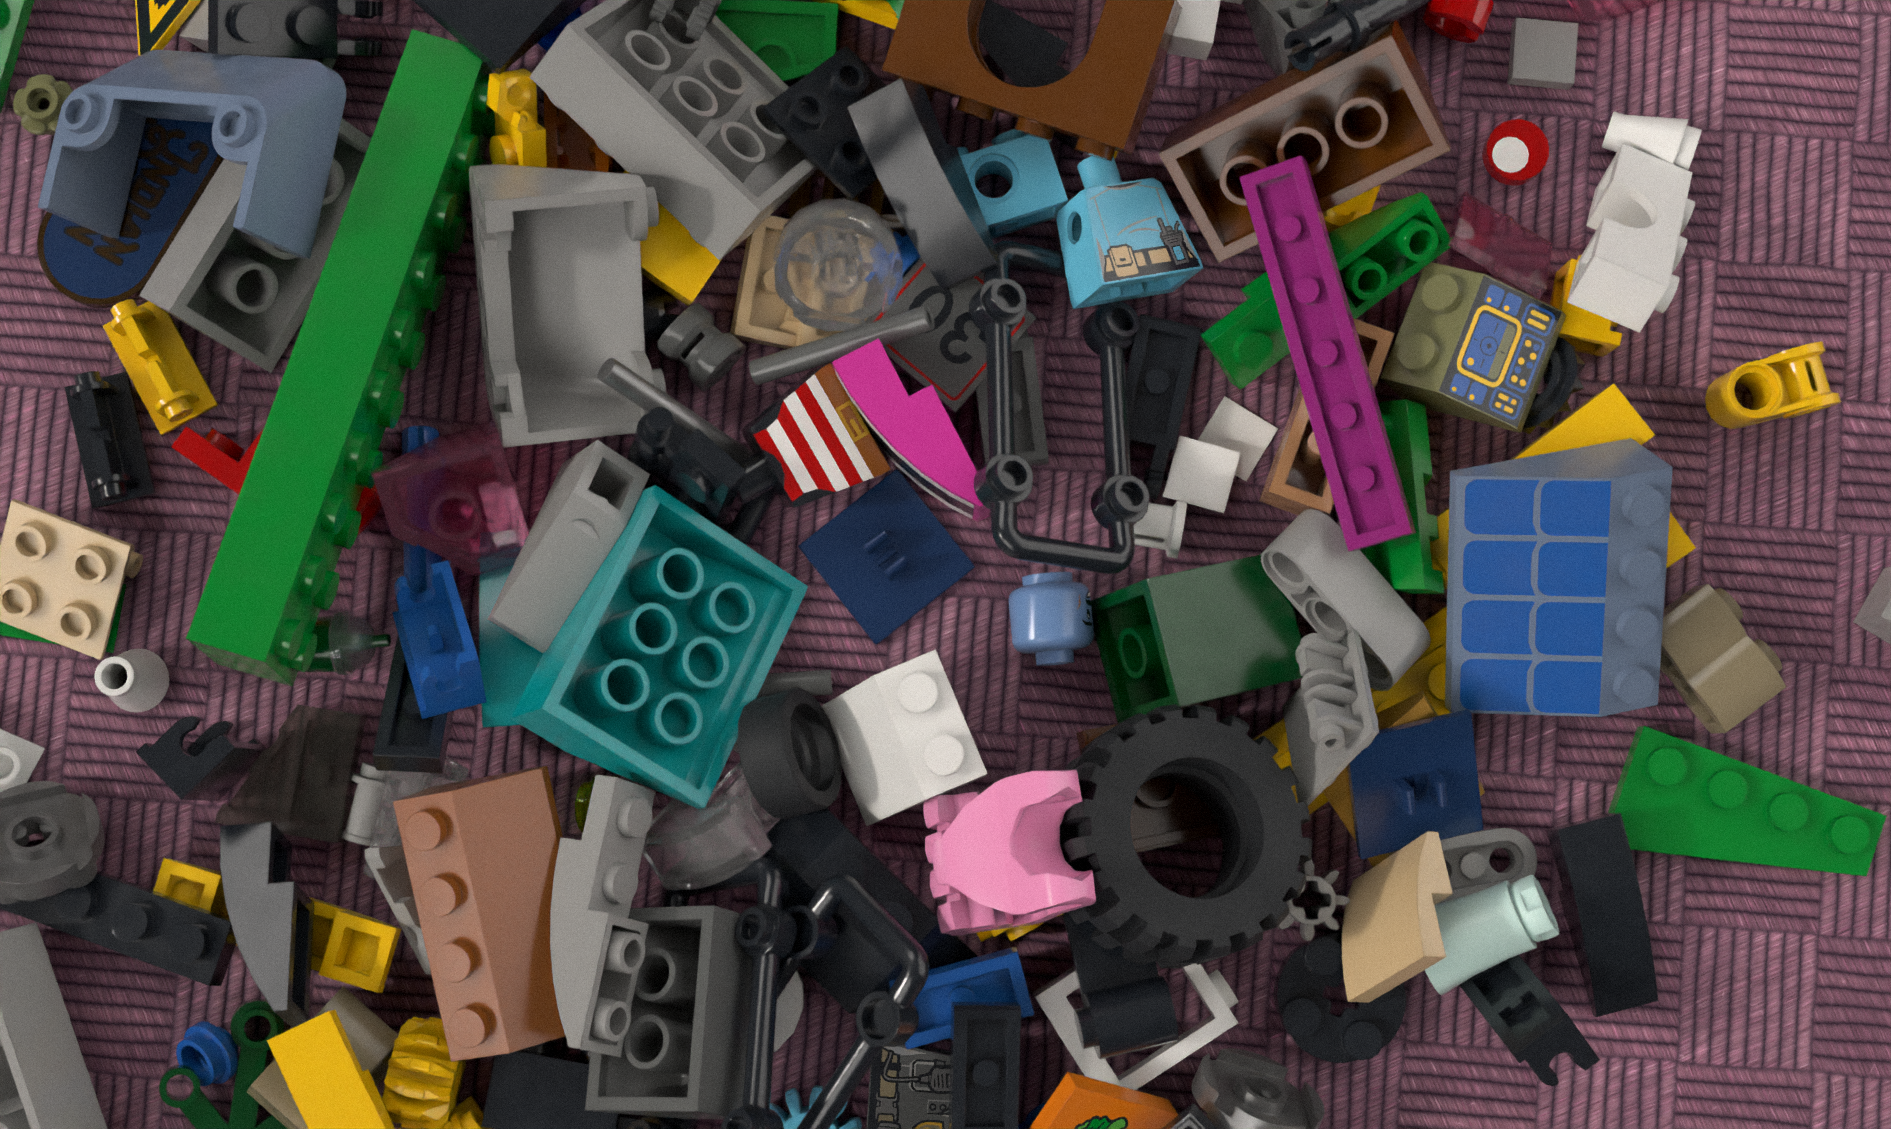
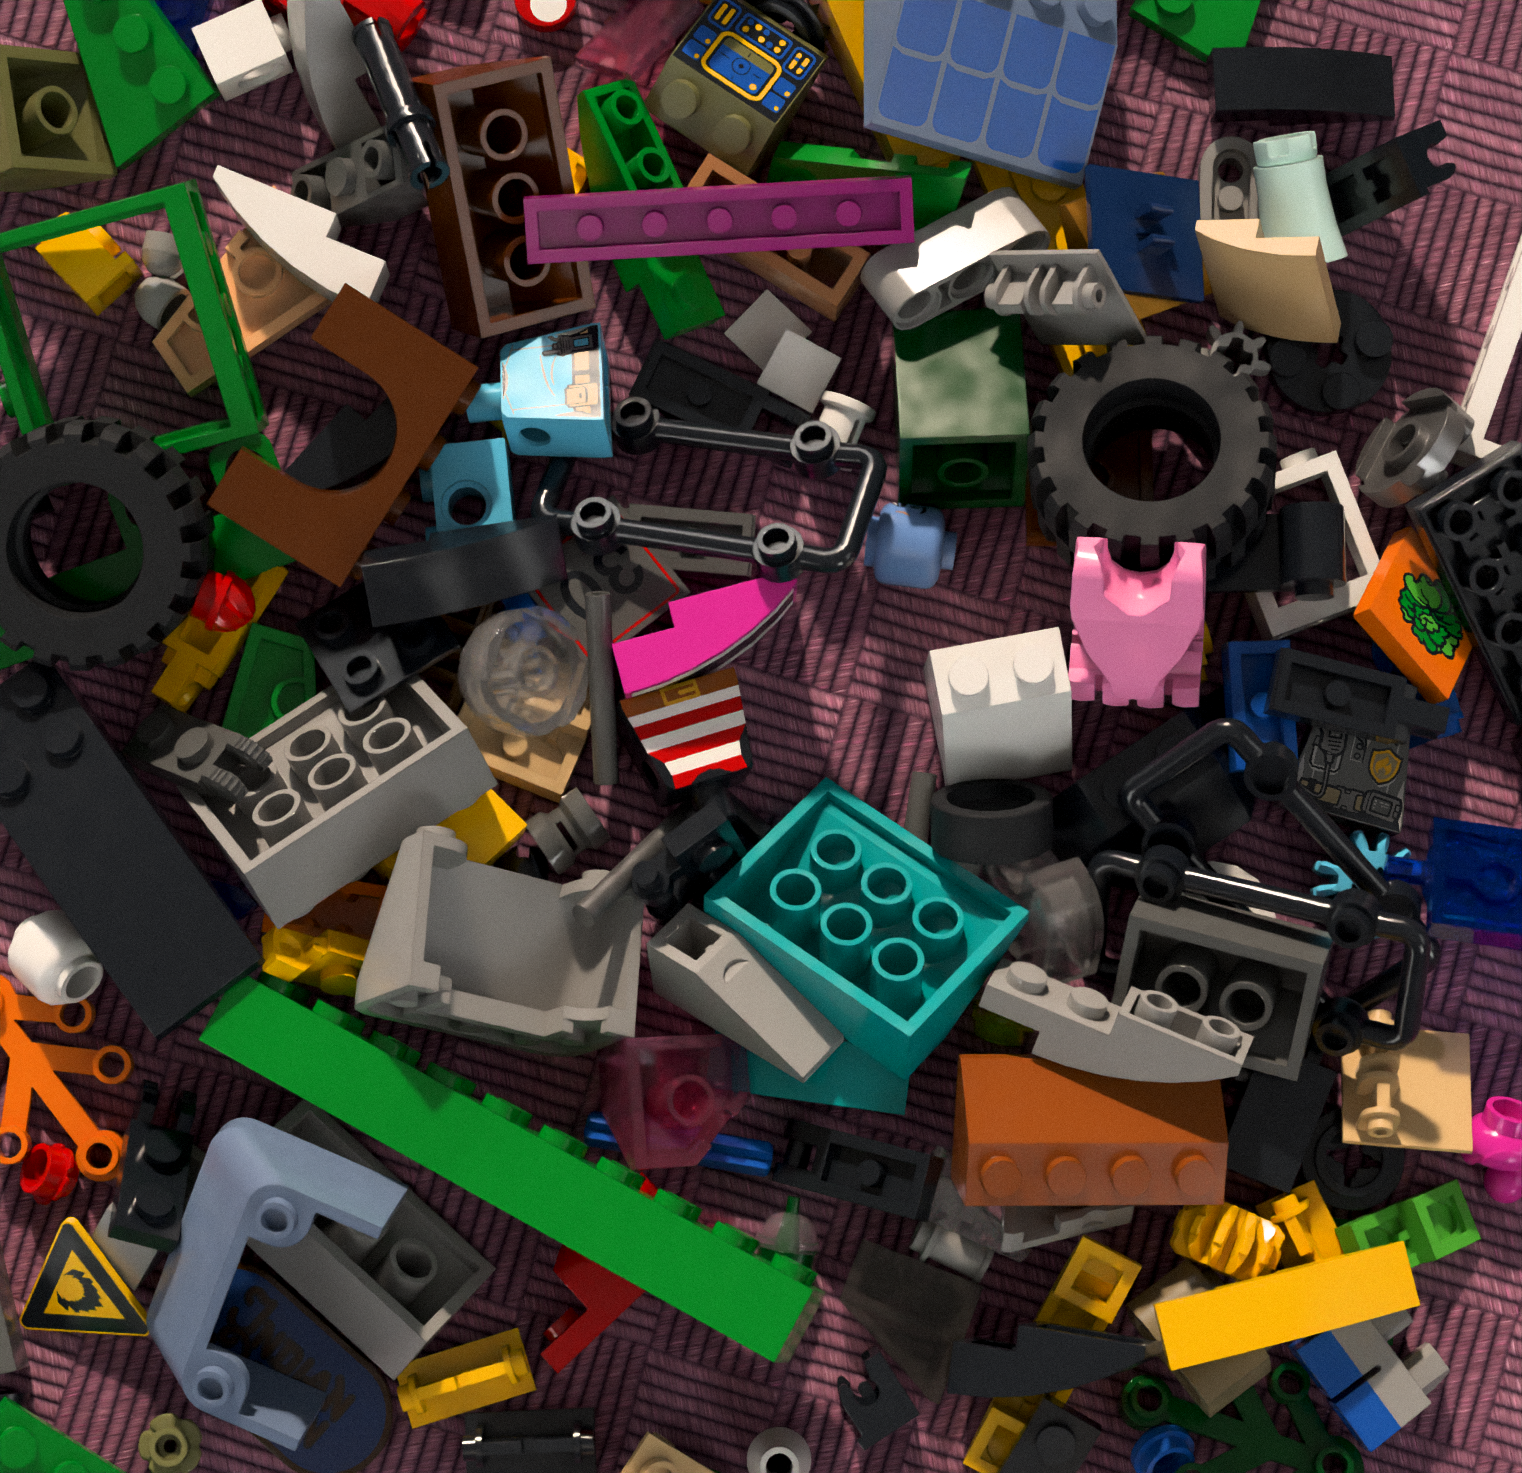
camera: 75 degrees left, 0 degrees up
(438, 644) = (813, 1140): blue hinge -> none
(886, 556) = (812, 695): dark blue piece -> none

